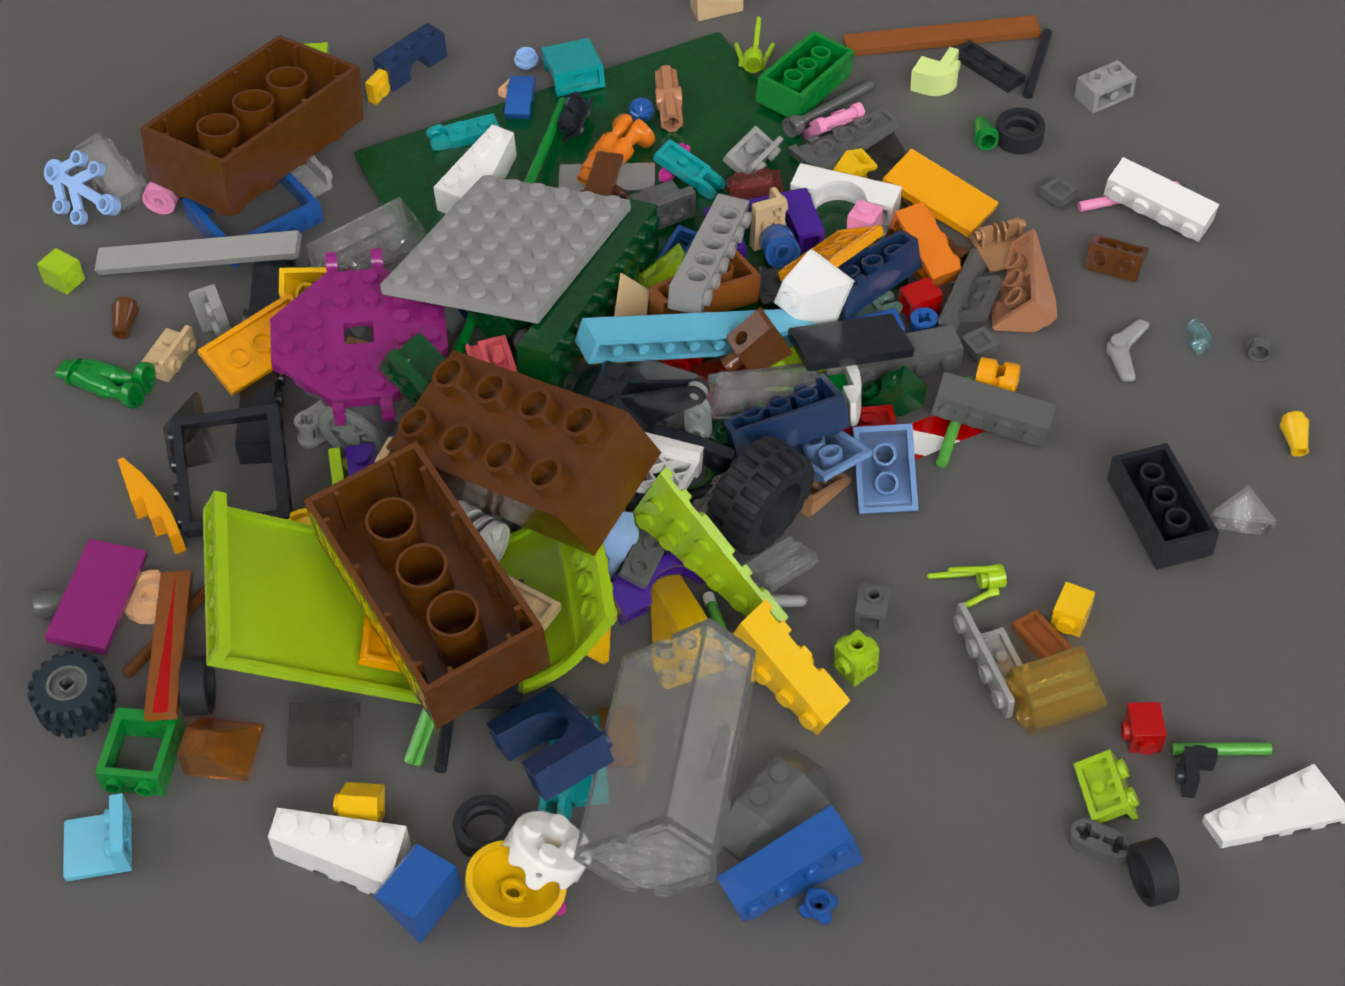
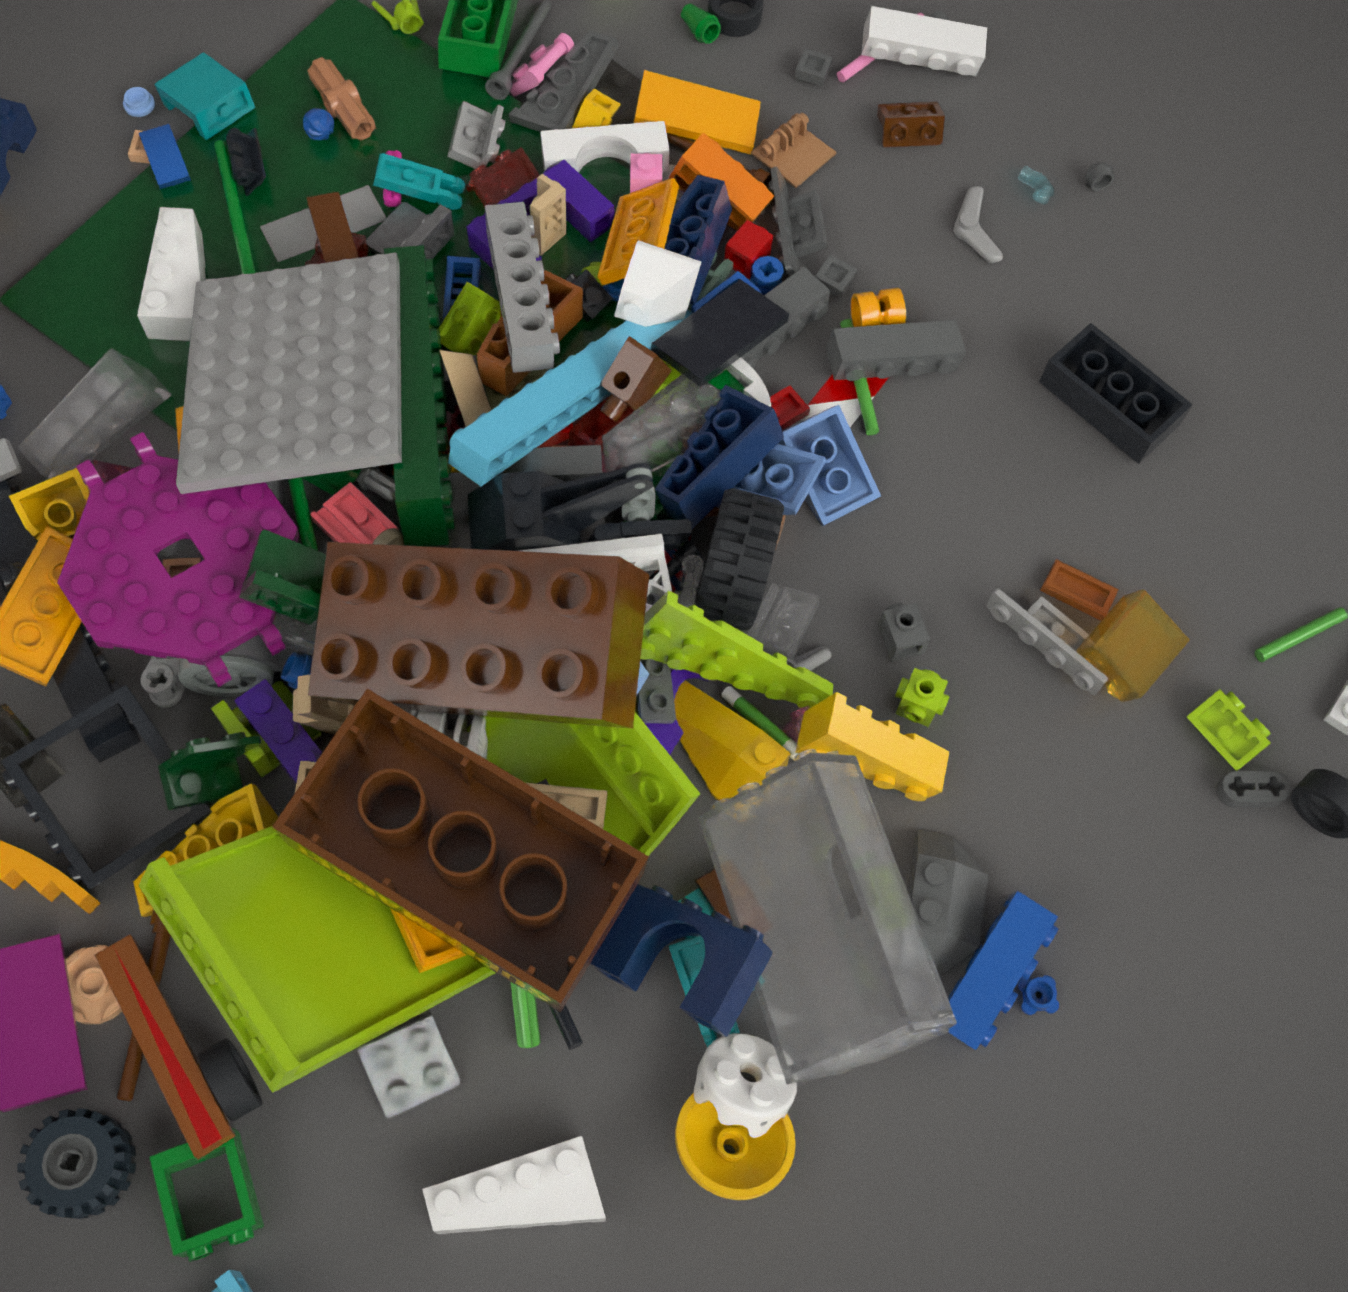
camera: 35 degrees left, 15 degrees up
(220, 748) = (298, 1135): clear orange slope -> none
(297, 477) = (204, 770): none -> dark green bracket
(361, 801) = (506, 1130): yellow brick -> none
(419, 891) = (634, 1202): blue slope -> none
(459, 133) = (121, 227): teal hinge -> none
(479, 806) = (656, 1052): black tyre -> none
(619, 141) = (309, 183): orange piece -> none
(779, 245) = (575, 242): blue wheel -> none
(899, 388) = (789, 364): dark green slope -> none
(987, 577) = (991, 545): lime plant -> none
(1026, 293) = (850, 201): nougat wedge -> none
(1072, 609) = (1093, 545): yellow brick -> none
(1143, 727) = (1228, 647): red brick -> none
(1192, 761) = (1291, 671): black bracket -> none
(1244, 514) = (1199, 367): clear slope -> none
(1296, 432) = (1183, 258): yellow cone -> none

